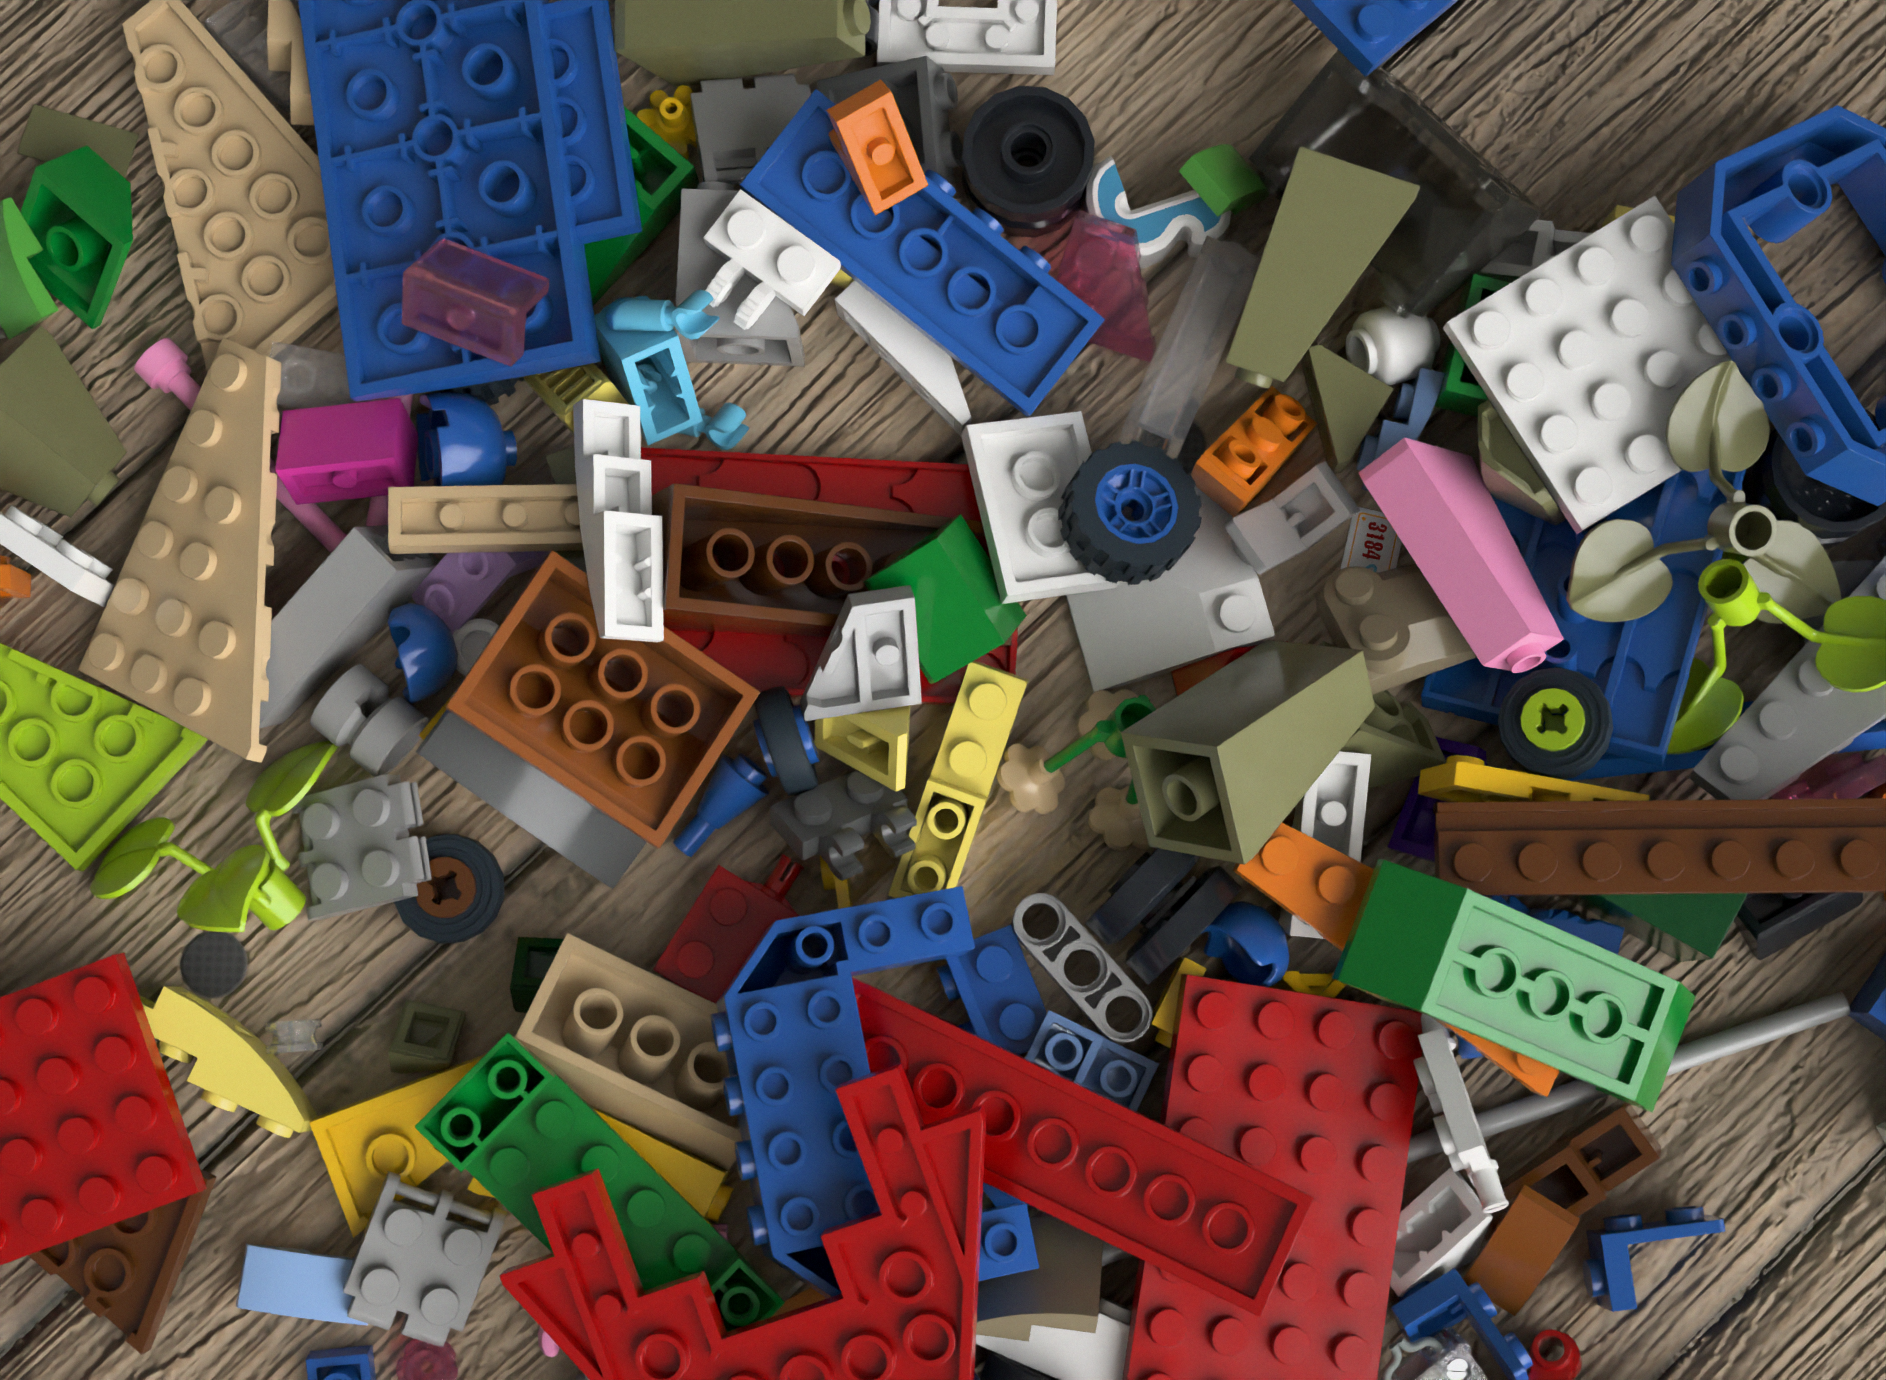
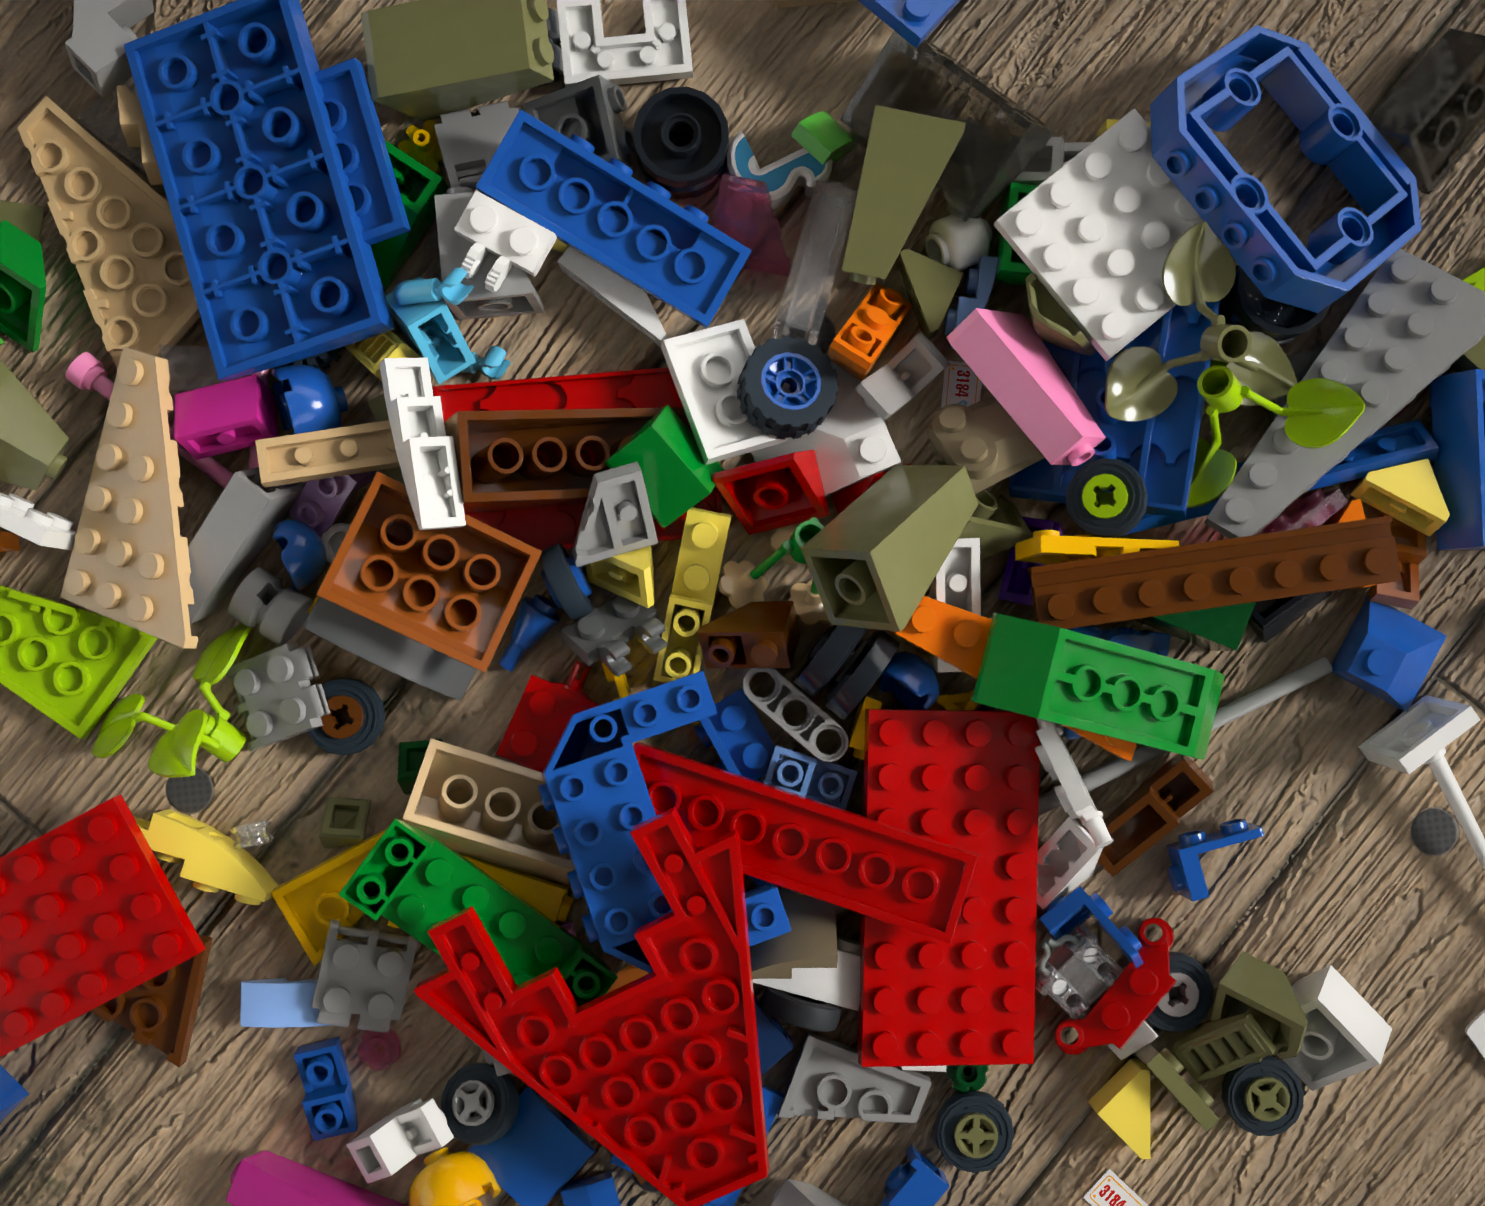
camera: 10 degrees left, 5 degrees up
(471, 300) = (292, 297): clear pink panel -> none
(876, 147) = (569, 145): orange slope -> none
(1035, 852) = (752, 637): none -> reddish brown slope
(1093, 654) = (774, 491): none -> red slope
(1521, 1249) = (1124, 867): dark orange slope -> none

